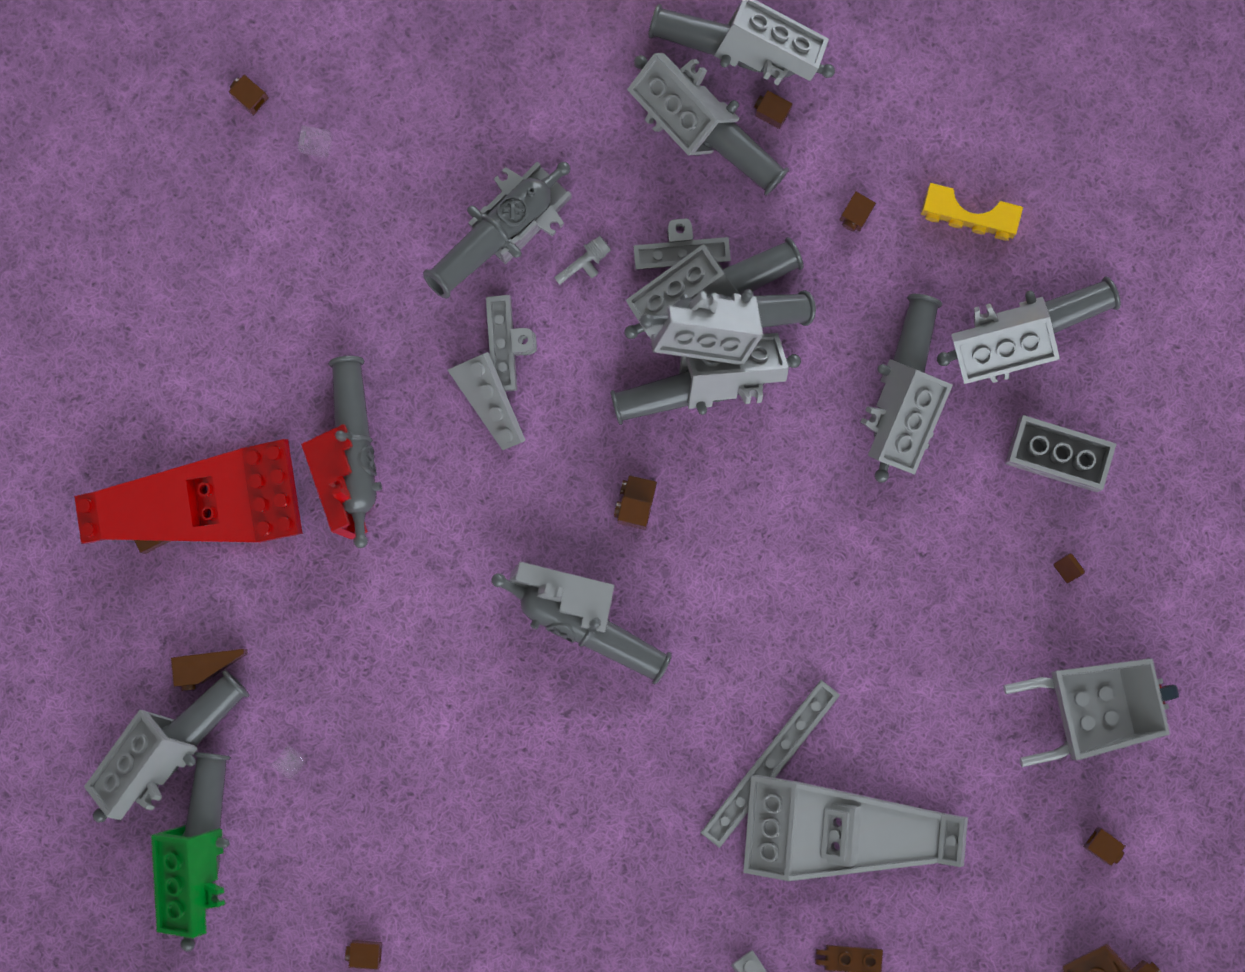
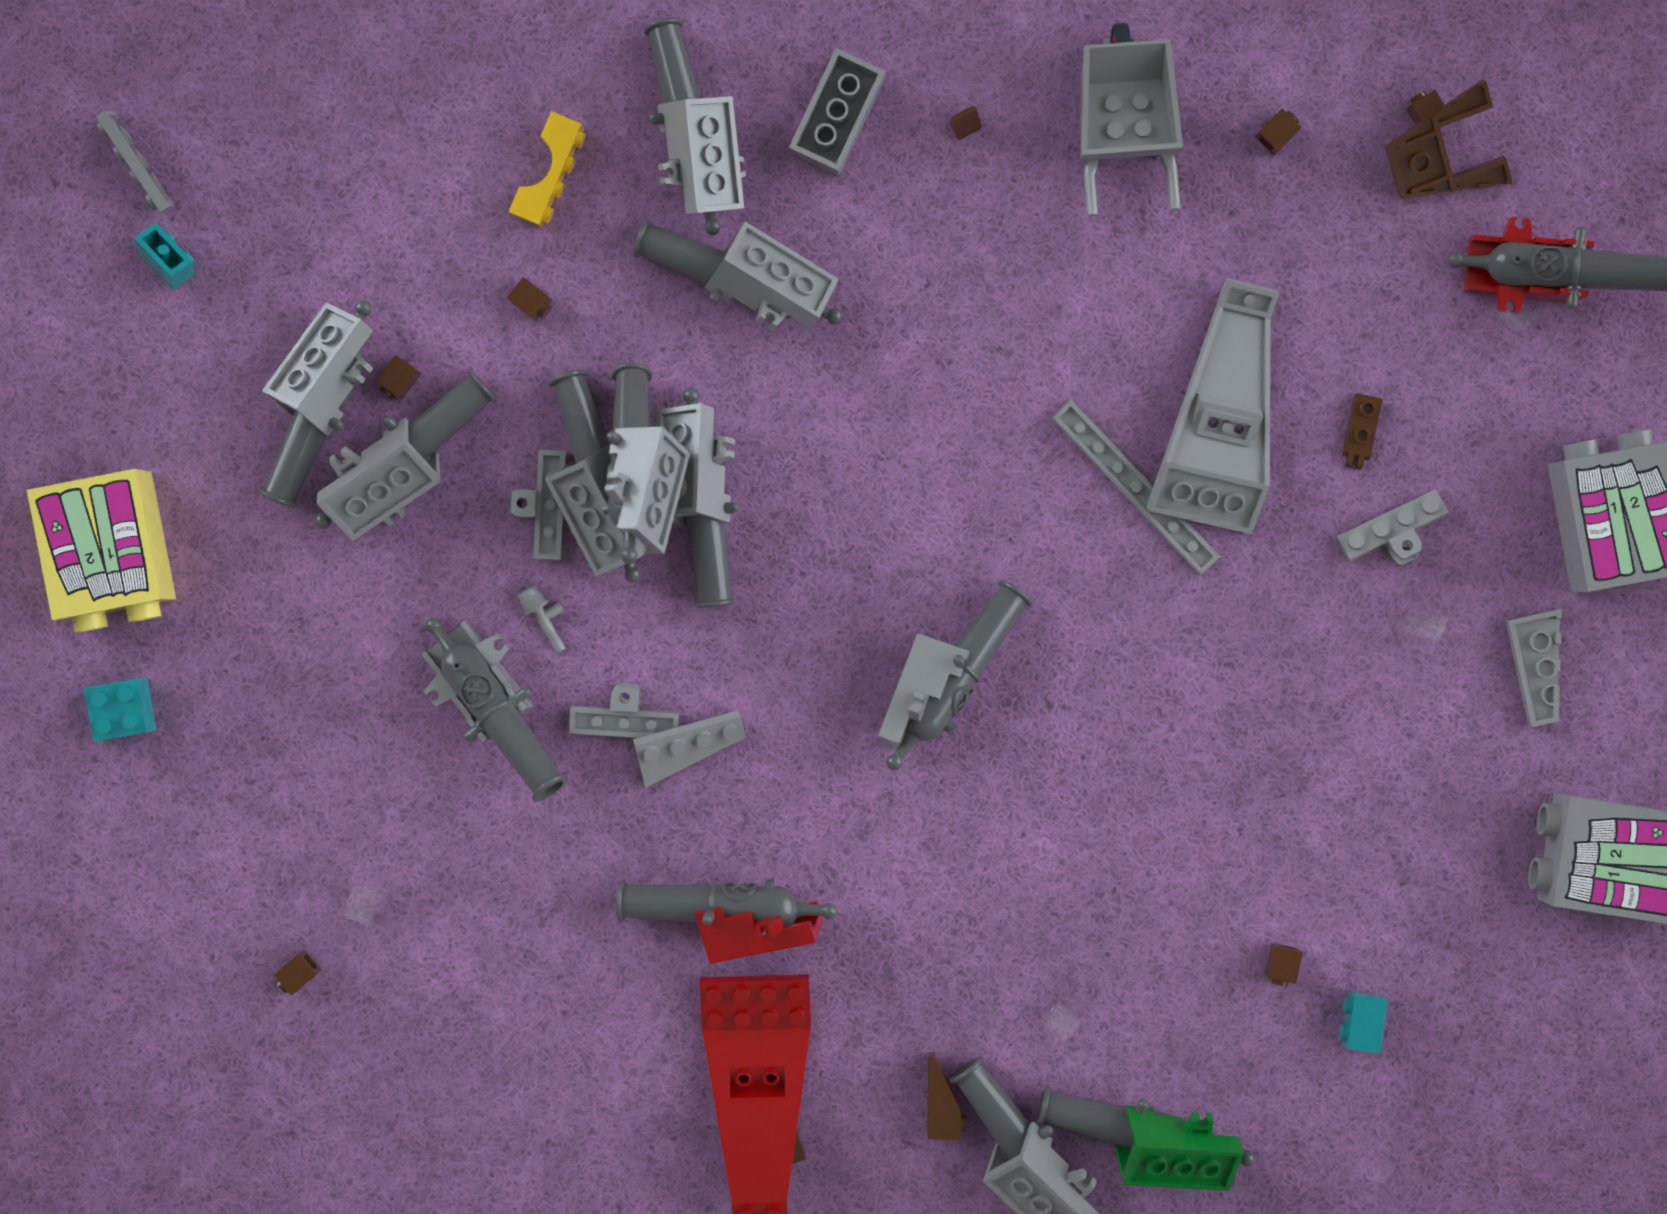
camera: 85 degrees left, 5 degrees up
(636, 503) = (826, 595): reddish brown brick -> none

